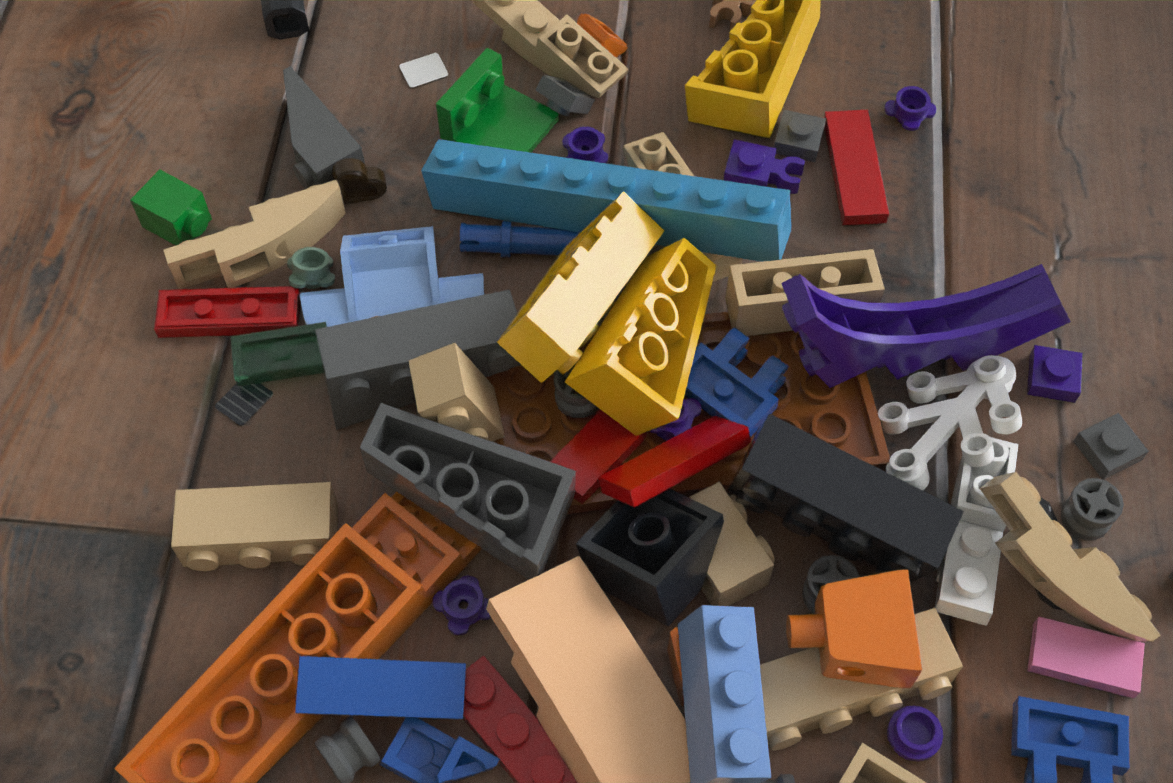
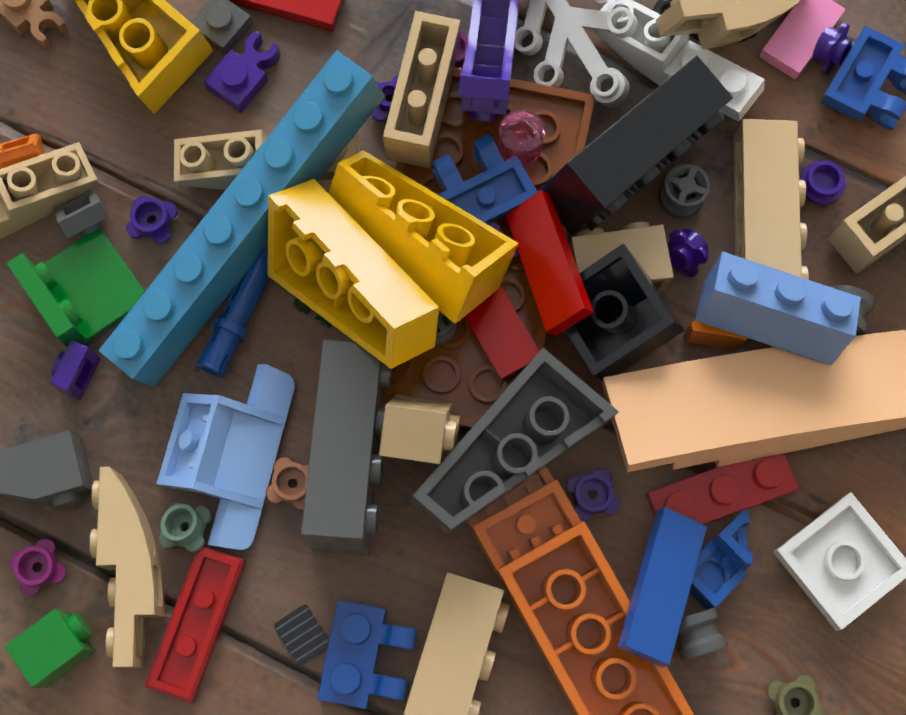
camera: 70 degrees left, 15 degrees up
(235, 445) = (354, 654): none -> blue plate
(236, 170) = (23, 566): none -> magenta plate
(276, 354) = (273, 582): clear green plate -> none
(358, 181) = (99, 447): dark brown tile -> none
(418, 138) = (74, 369): none -> dark purple plate
(767, 606) = (687, 251): none -> dark purple plate
(793, 407) = (525, 148): none -> clear pink wheel
(863, 630) = (754, 178): orange torso -> none
(1083, 688) = (832, 47): none -> dark purple plate

